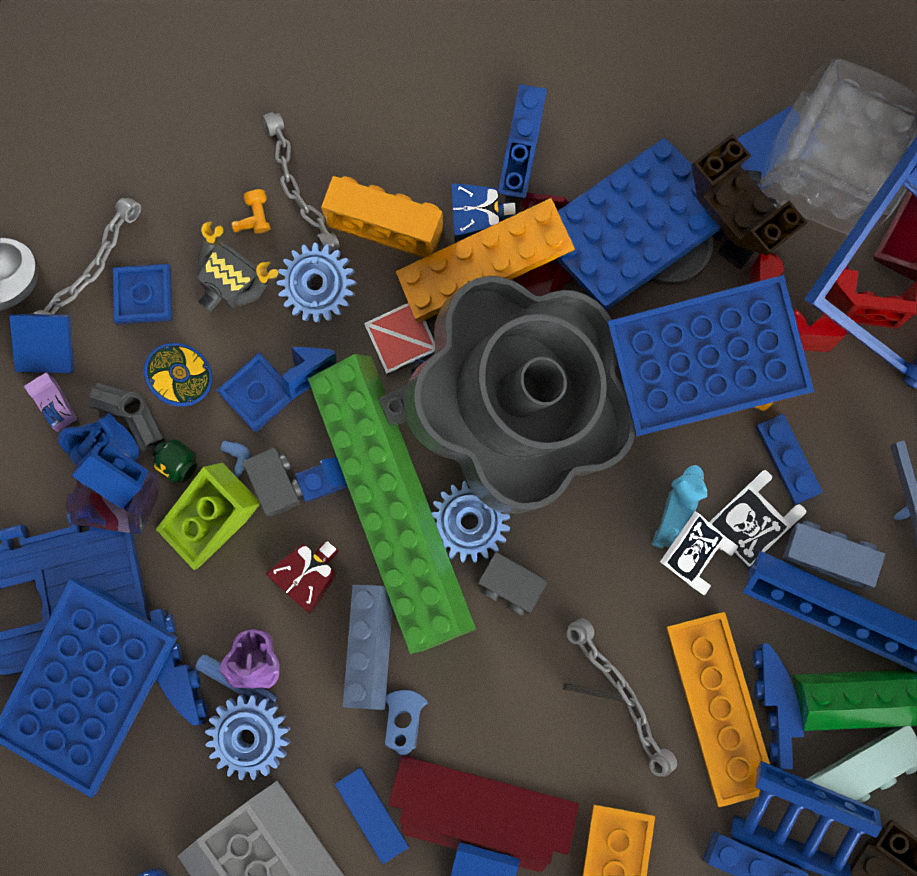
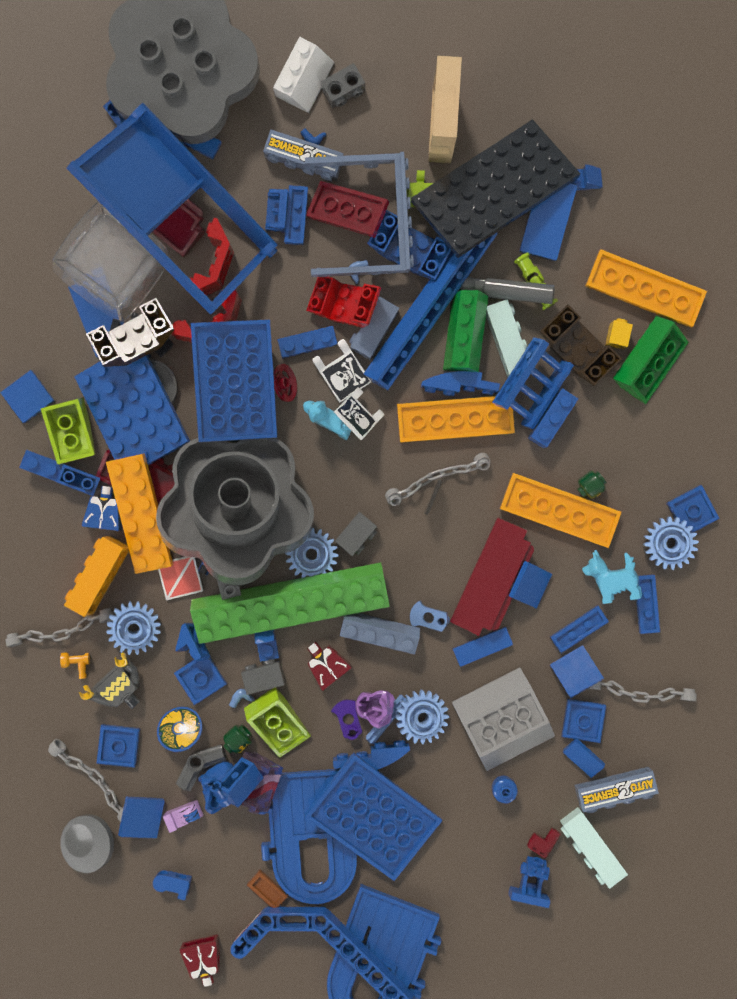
camera: 90 degrees left, 10 degrees up
(245, 616) = (347, 707): none -> dark purple piece
(587, 142) = (69, 430): none -> lime slope
(621, 81) = (27, 396): none -> blue tile
(720, 433) = (282, 382): none -> dark red dish
(862, 500) = (343, 301): none -> red slope

